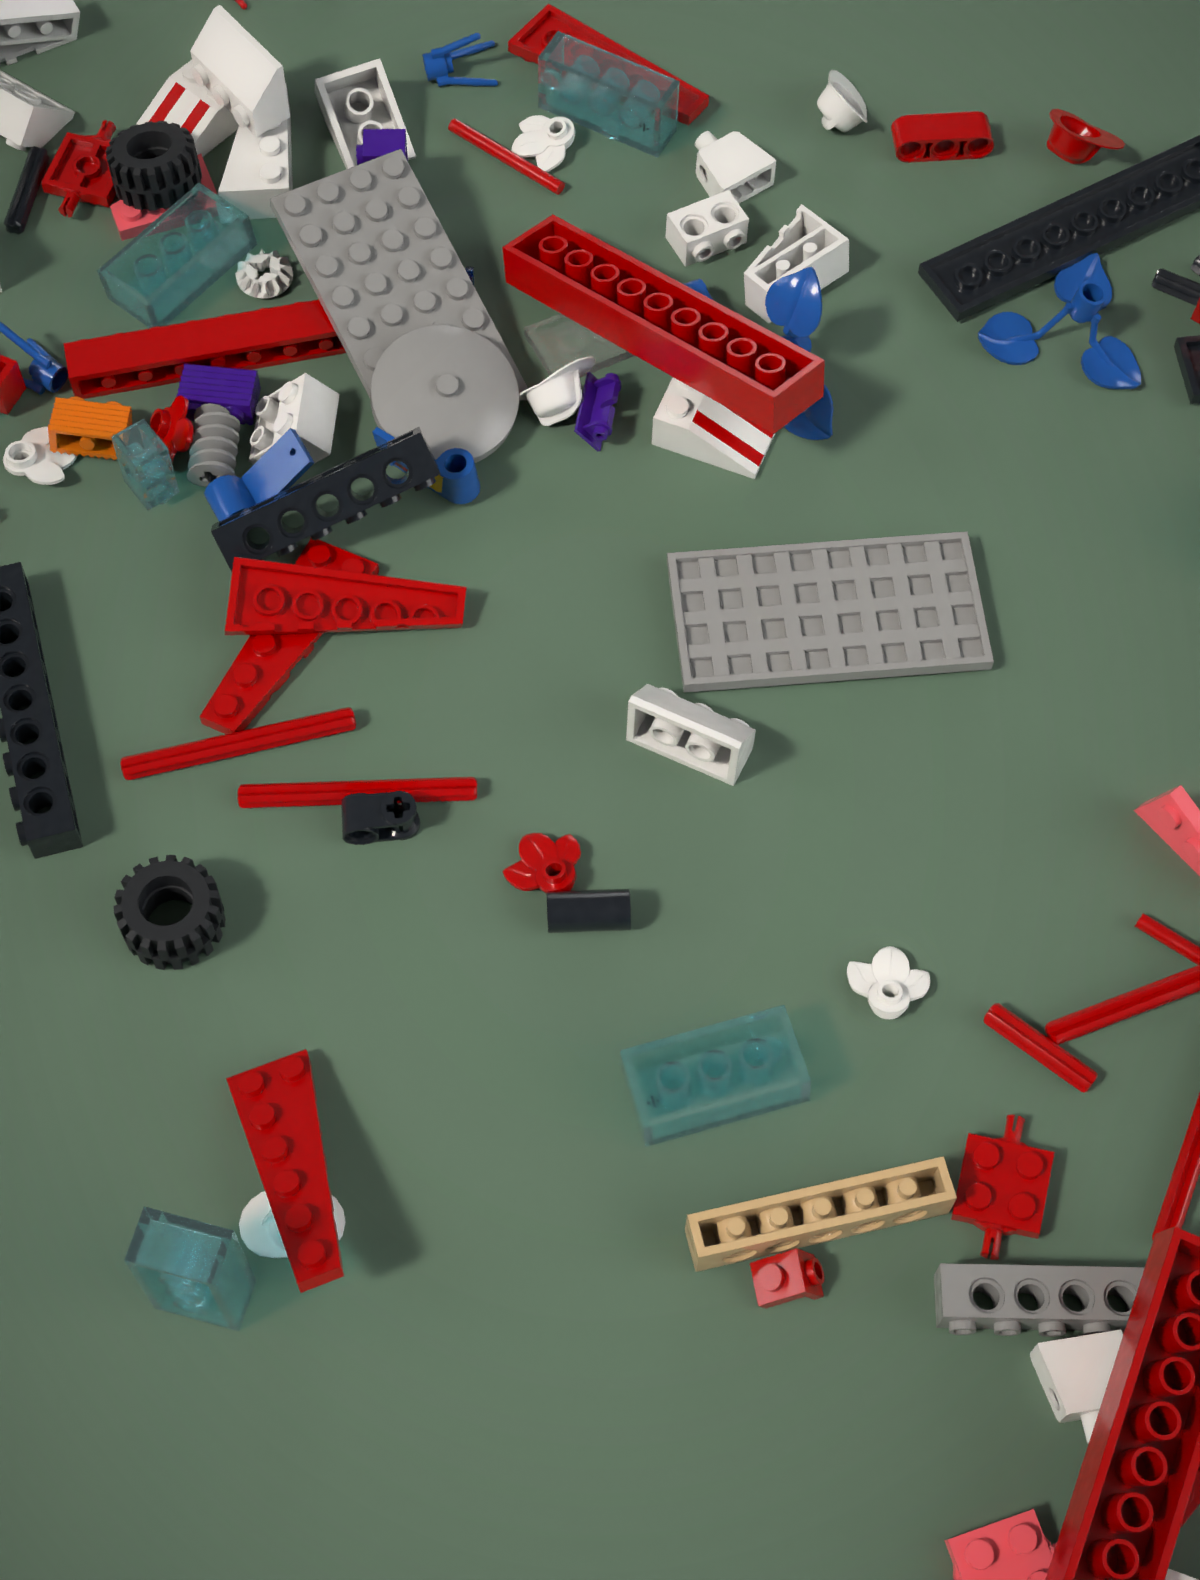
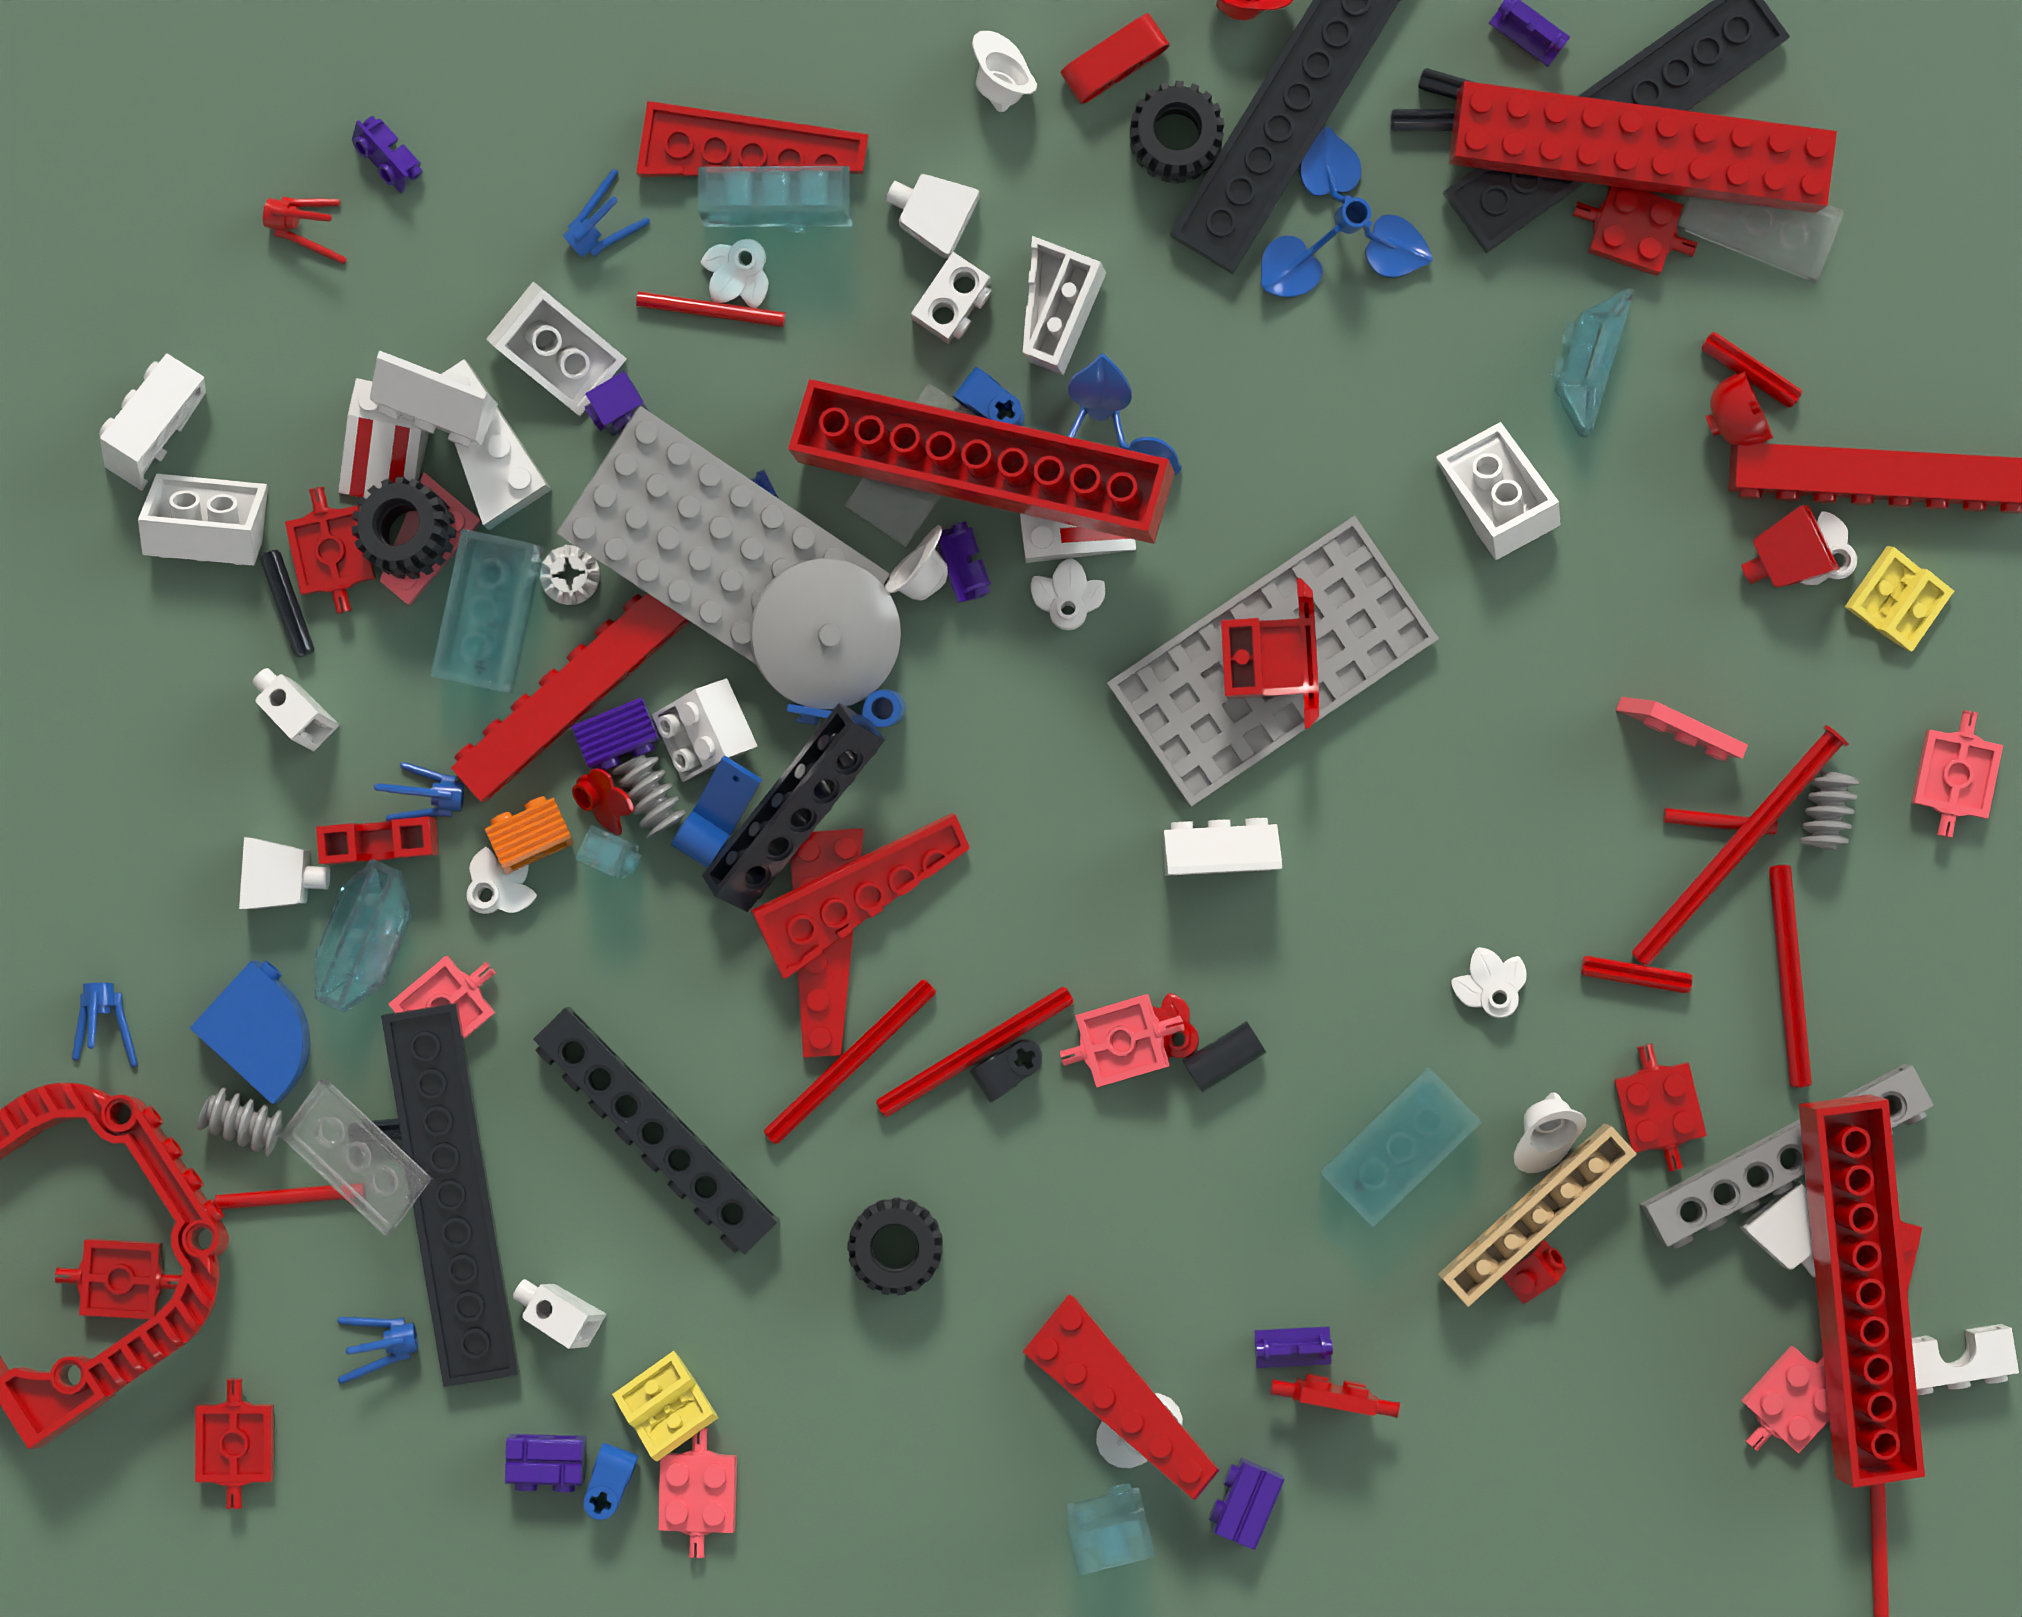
camera: 25 degrees left, 25 degrees up
(353, 1349) = (1246, 1503): none -> dark purple brick
(495, 1221) = (1293, 1347): none -> dark purple hinge
(499, 845) = (1122, 1040): none -> coral plate
(519, 1287) = (1321, 1392): none -> red plate
(673, 479) = (1067, 589): none -> white plate
(827, 591) = (1274, 656): none -> red piece
(871, 1142) = (1548, 1135): none -> white piece
(963, 178) = (1185, 102): none -> black tyre
(1113, 579) = (1500, 491): none -> white slope

